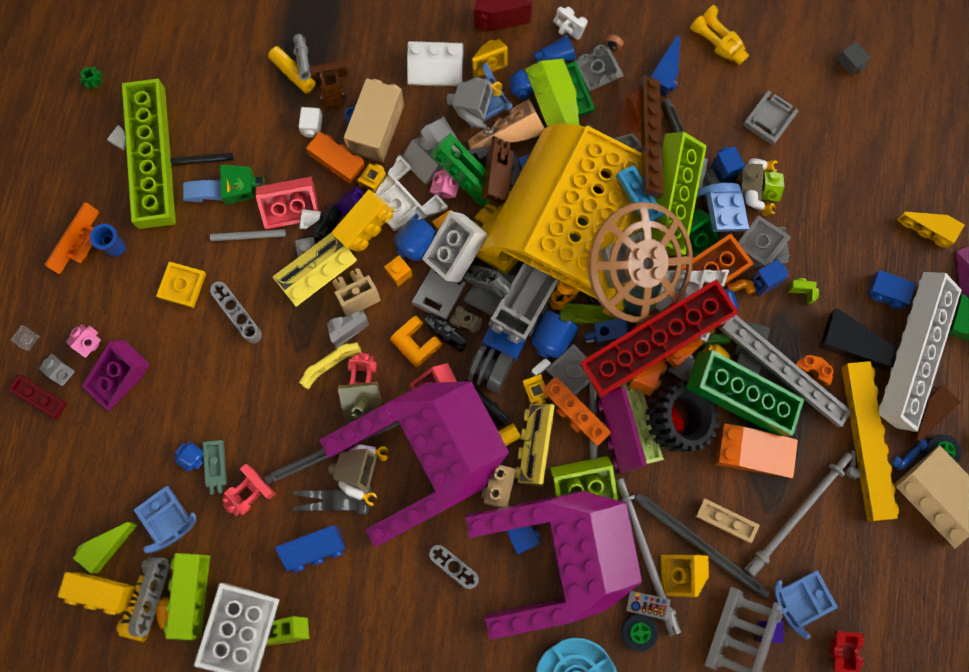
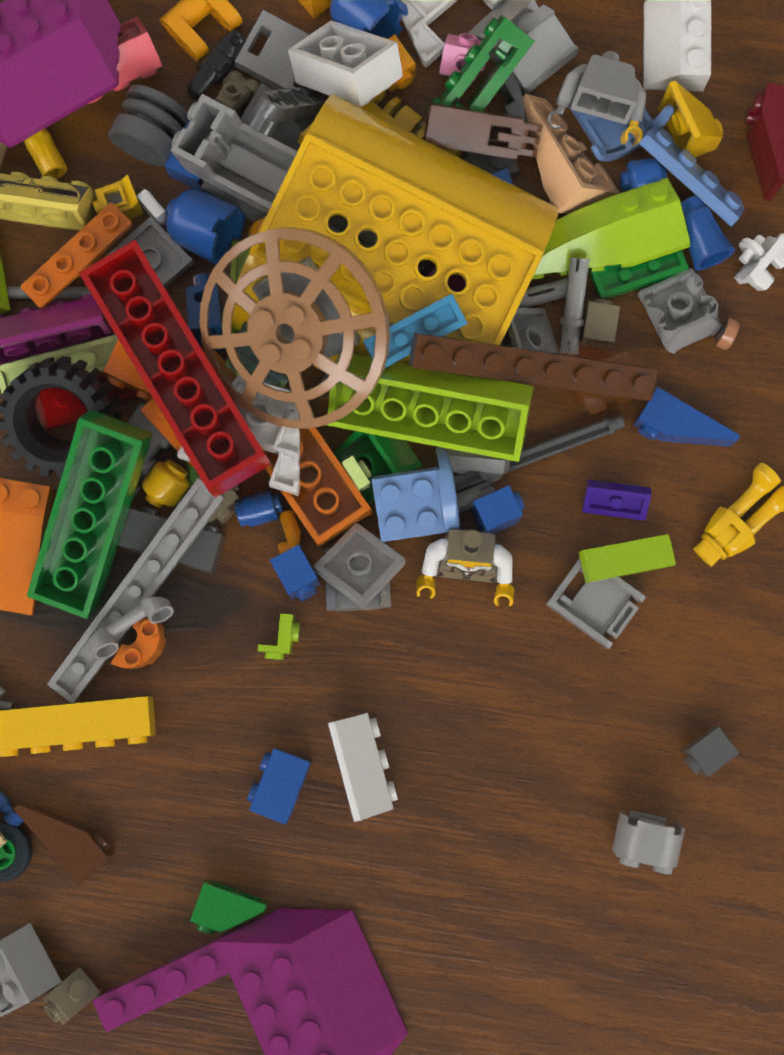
camera: 90 degrees right, 5 degrees up
(494, 411) = (96, 131): black pin -> none
(519, 58) = (700, 182): none -> medium blue plate
(599, 122) = (574, 306): none -> light grey pin
(610, 110) = (600, 324): none -> dark tan brick
(708, 241) = (358, 473): none -> yellowish green plate
(713, 104) = (616, 500): none -> dark purple plate
(748, 98) = (627, 558): none -> lime tile
(773, 186) = (468, 595): lime bracket -> none
(818, 385) = (103, 641): none -> light grey bar
(855, 341) = (188, 720): black slope -> none
(877, 242) = (362, 766): none -> white slope
(907, 89) = (647, 841): none -> light grey brick
(920, 351) = (164, 820): white brick -> none
(936, 227) = (391, 879): yellow slope -> none

